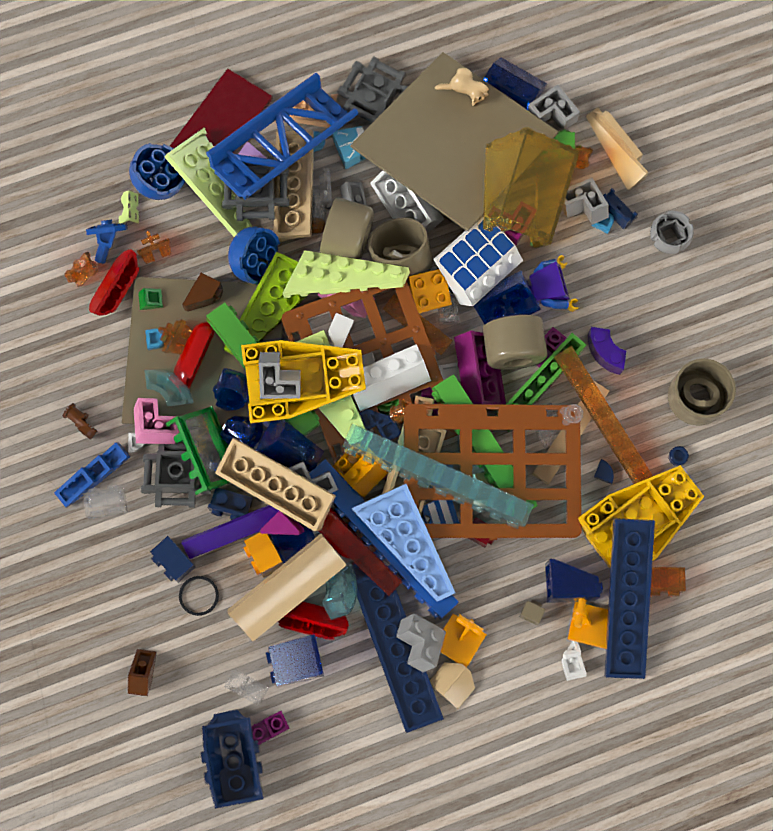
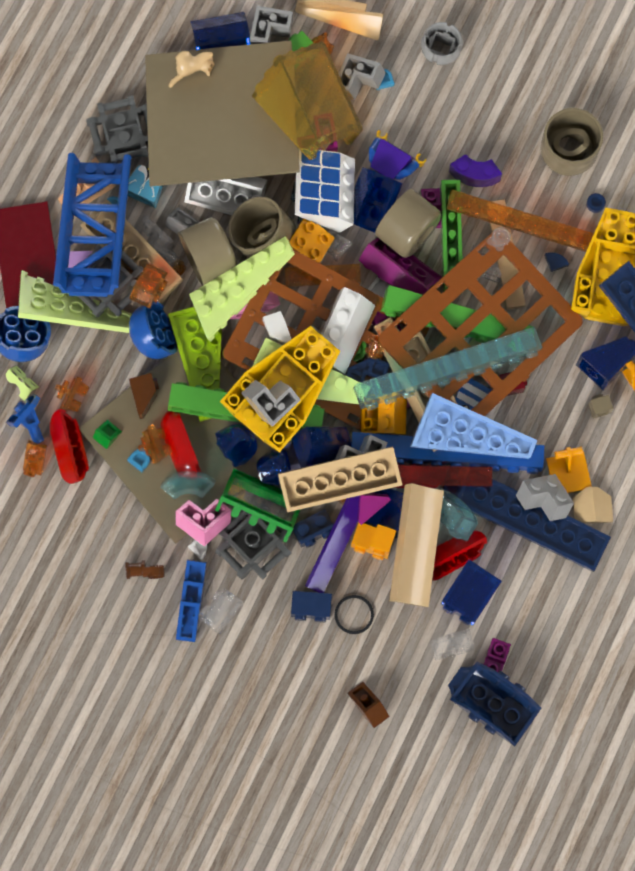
camera: 40 degrees left, 0 degrees up
(277, 216) = (149, 285): none -> clear orange brick
(619, 210) = (389, 61): dark blue hinge -> none

